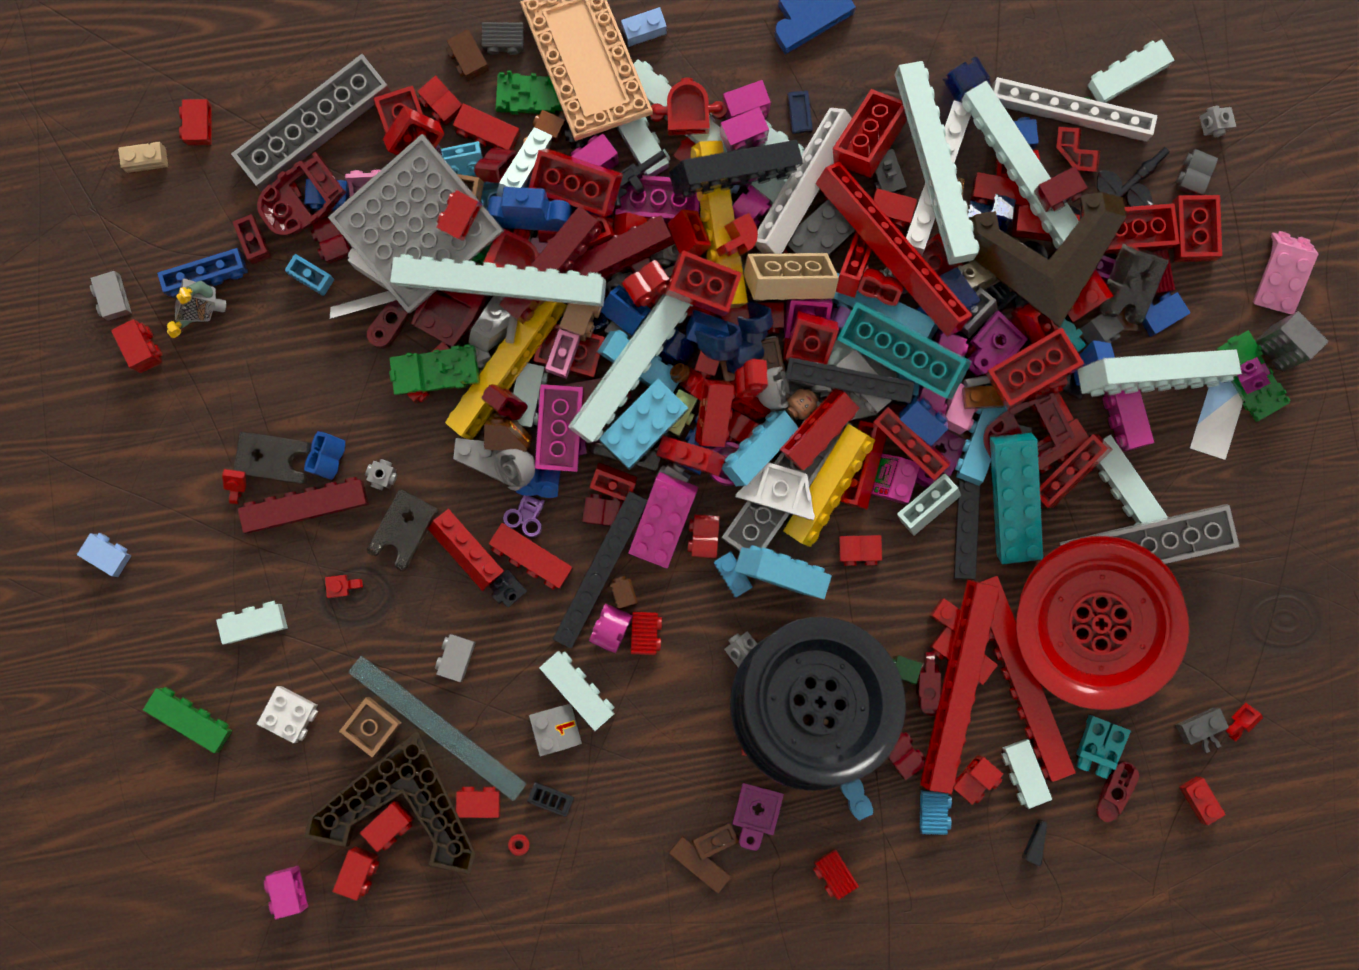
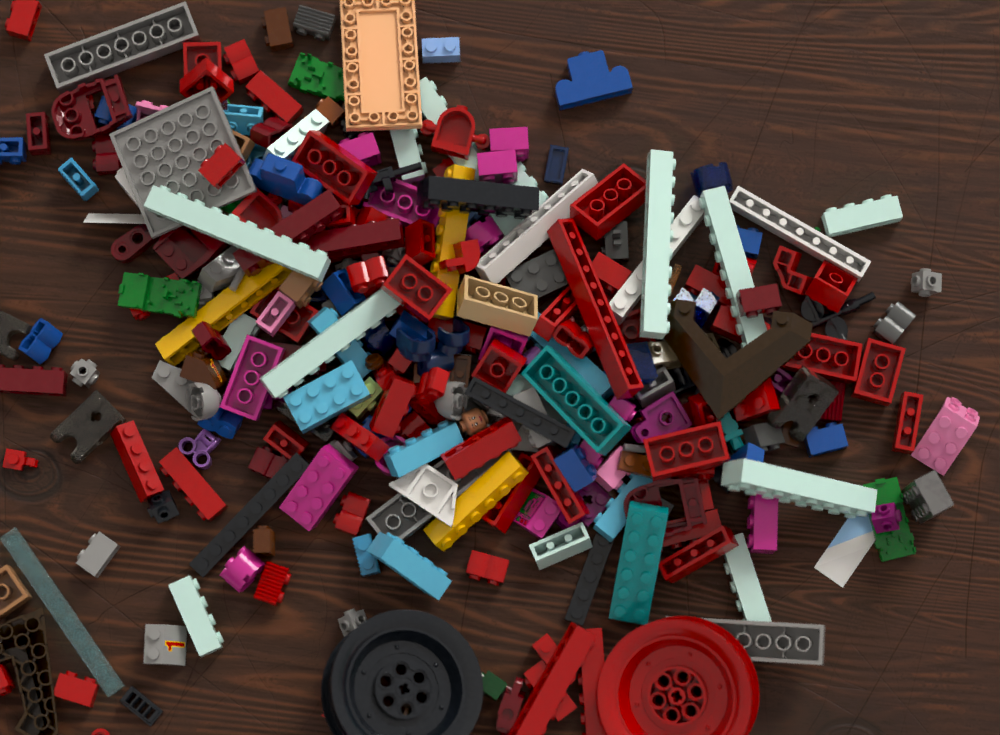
camera: 20 degrees right, 5 degrees down
(1123, 153) = (831, 286): none -> red brick
(1242, 271) = (907, 422): none -> red brick

